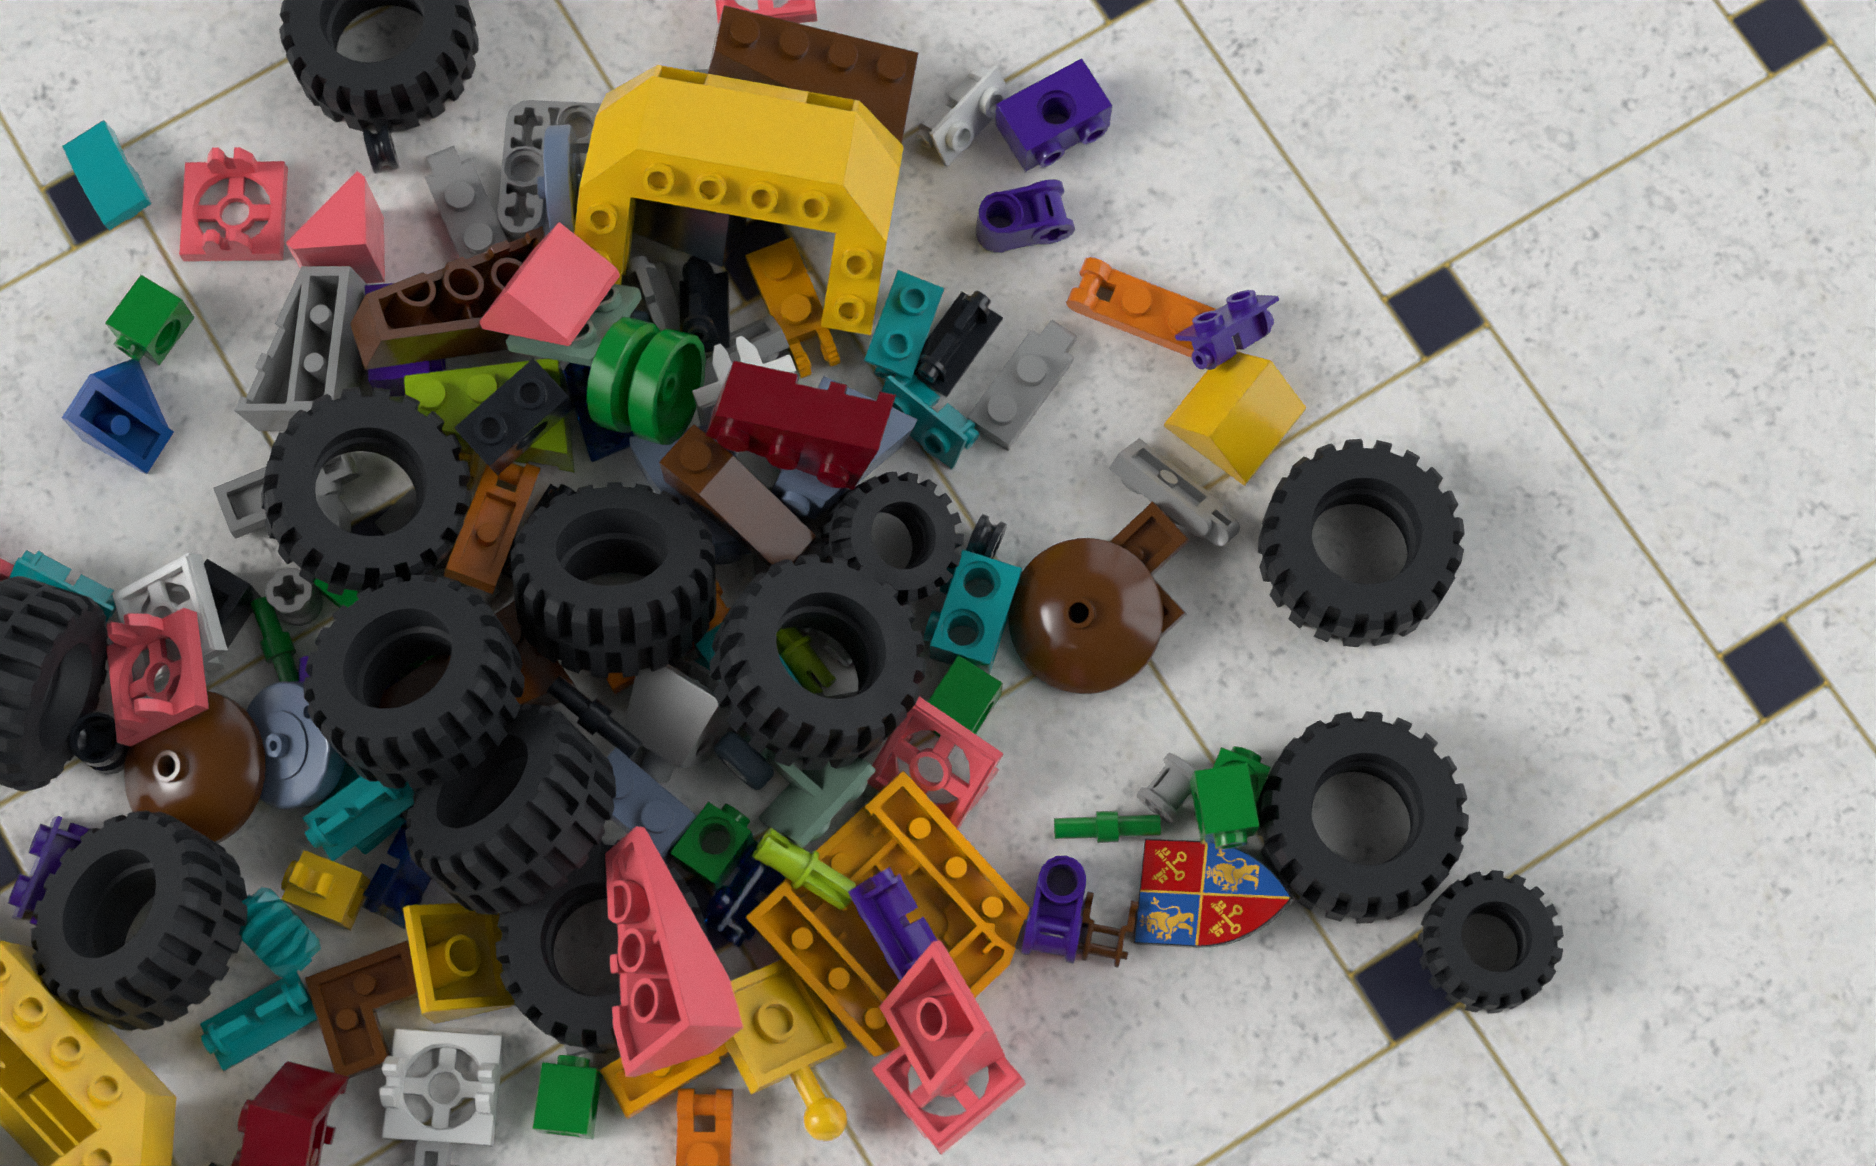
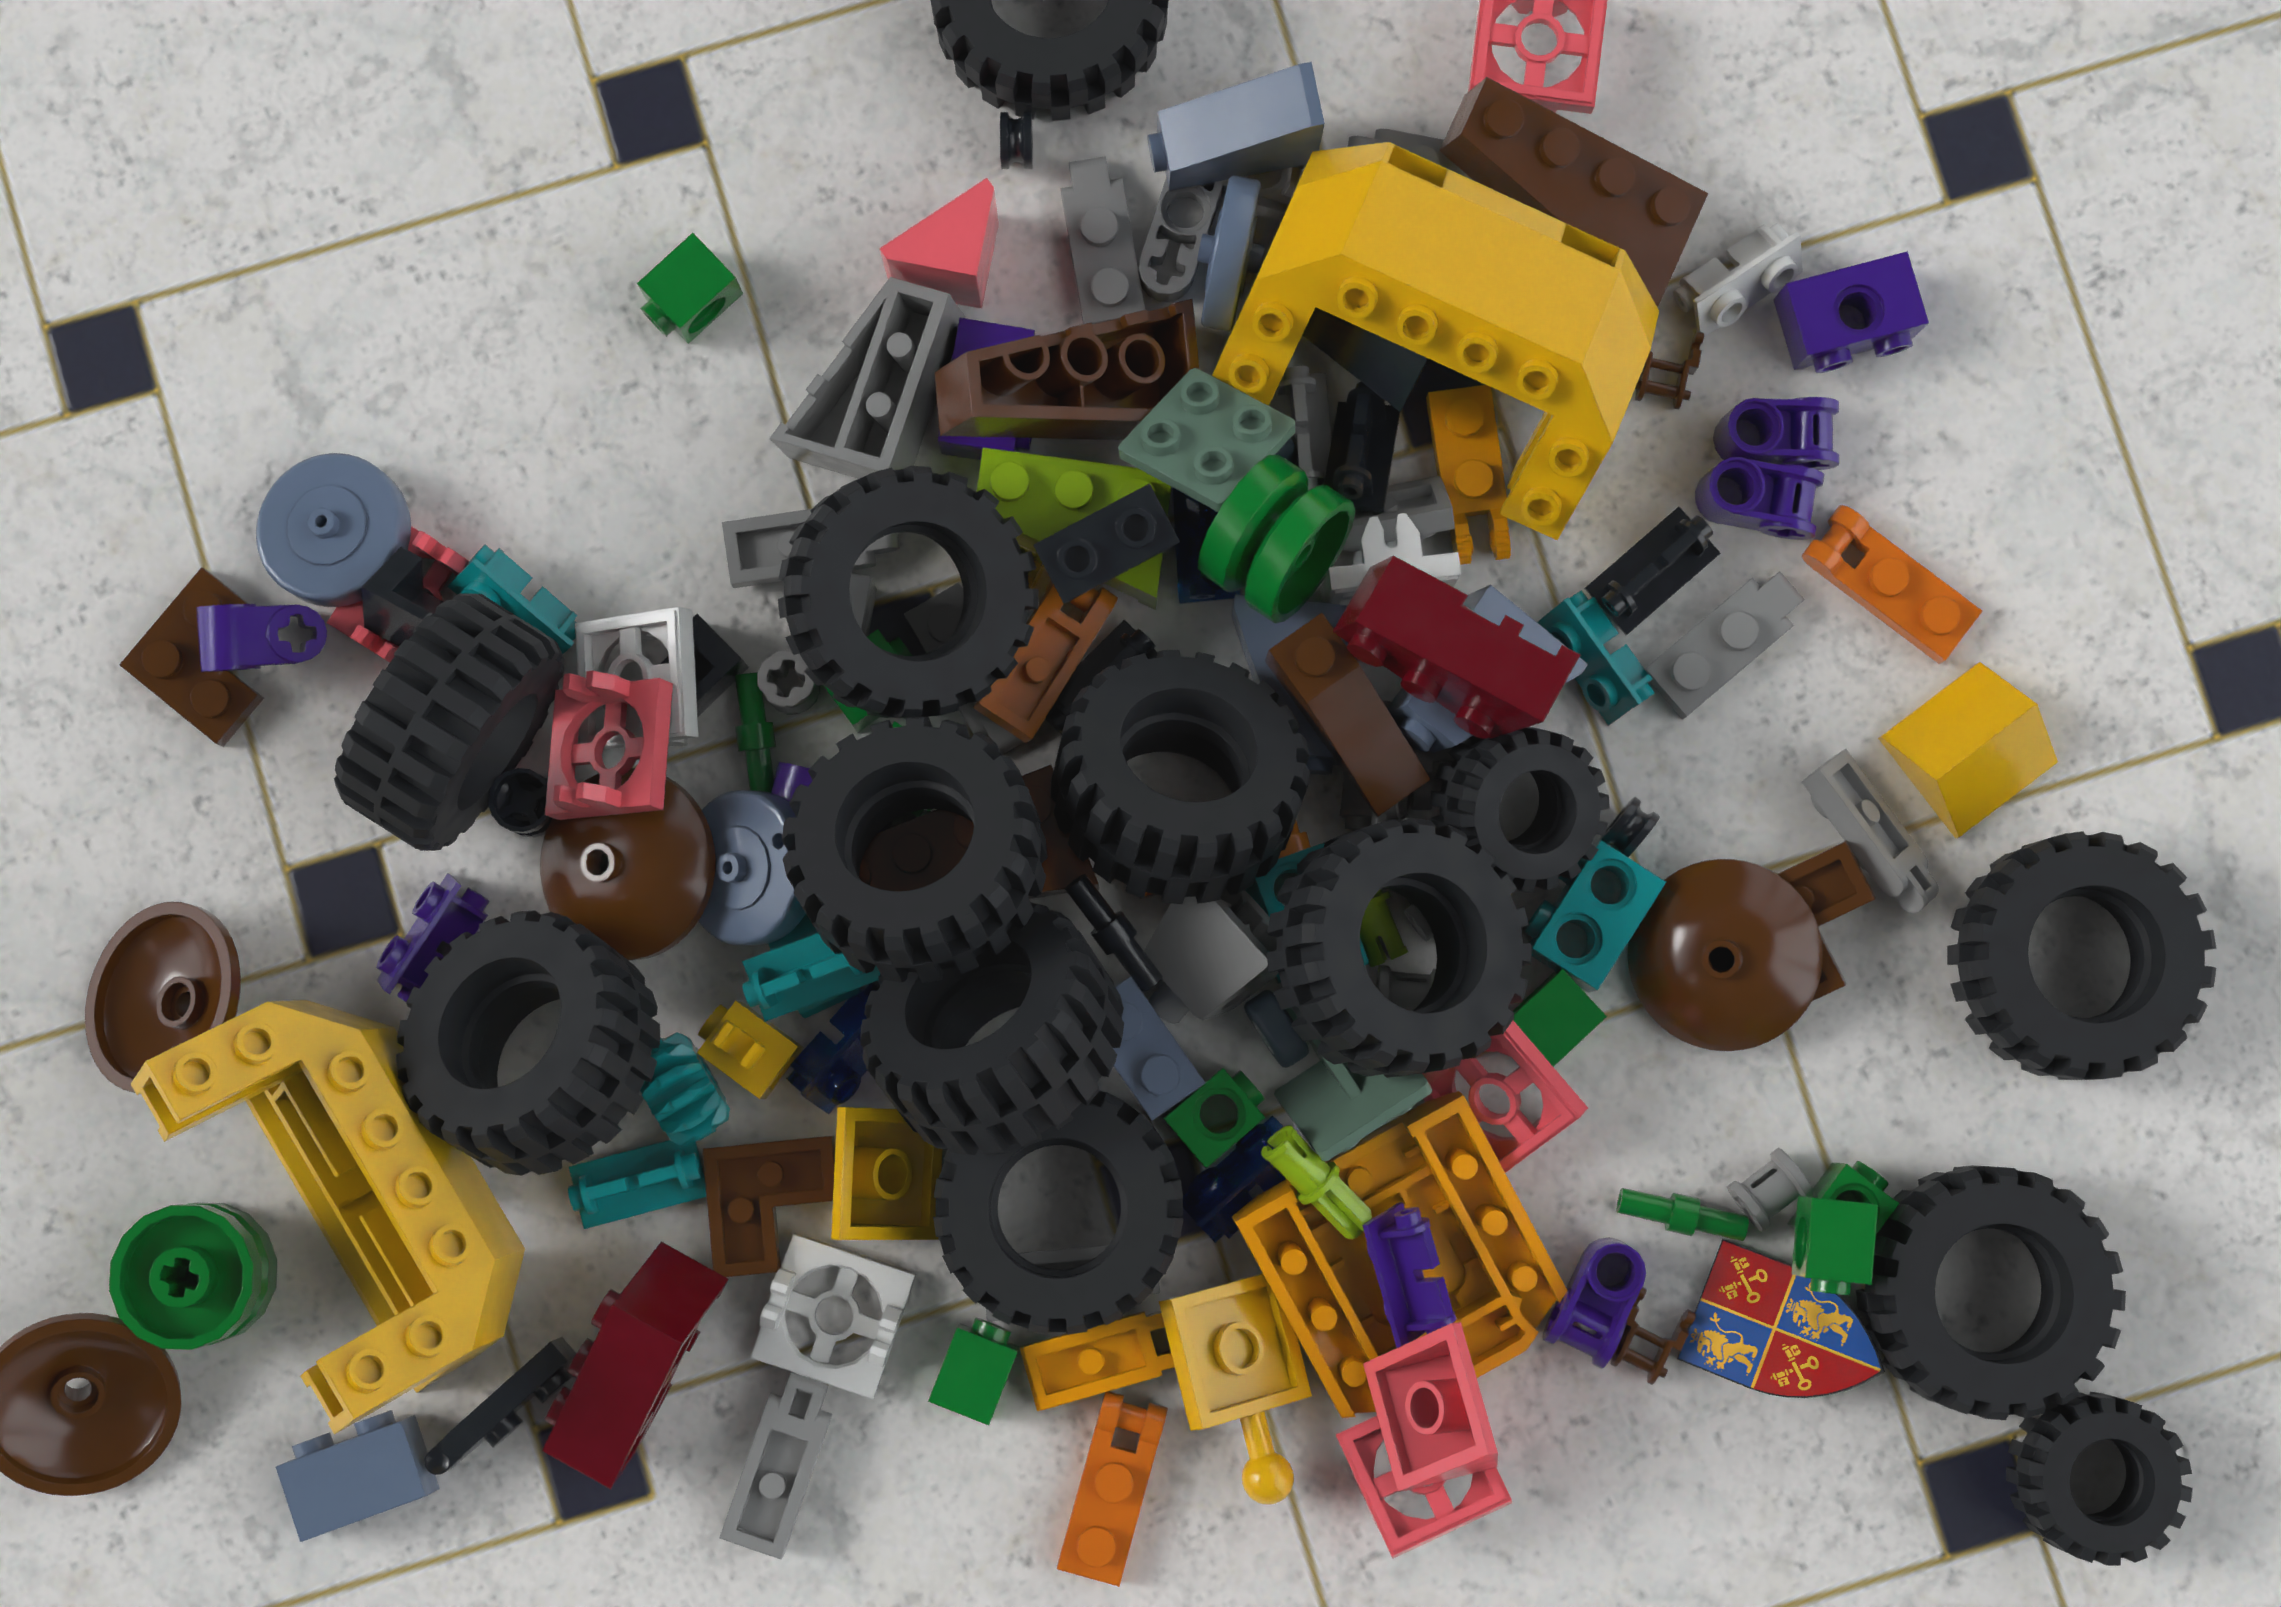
camera: 10 degrees right, 10 degrees up
(106, 175) = (676, 87): teal slope -> none
(120, 416) = (632, 401): blue slope -> none
(236, 245) = (792, 116): coral piece -> none
(550, 89) = (1240, 130): none -> sand blue slope
(552, 290) = (1189, 399): coral slope -> none
(671, 981) = (1132, 1283): coral wedge -> none
(903, 326) = (1599, 536): teal hinge -> none
(925, 209) = (1676, 392): none -> reddish brown piece
(1026, 265) = (1774, 497): none -> dark purple piece
(1212, 332) = (1992, 640): dark purple hinge -> none

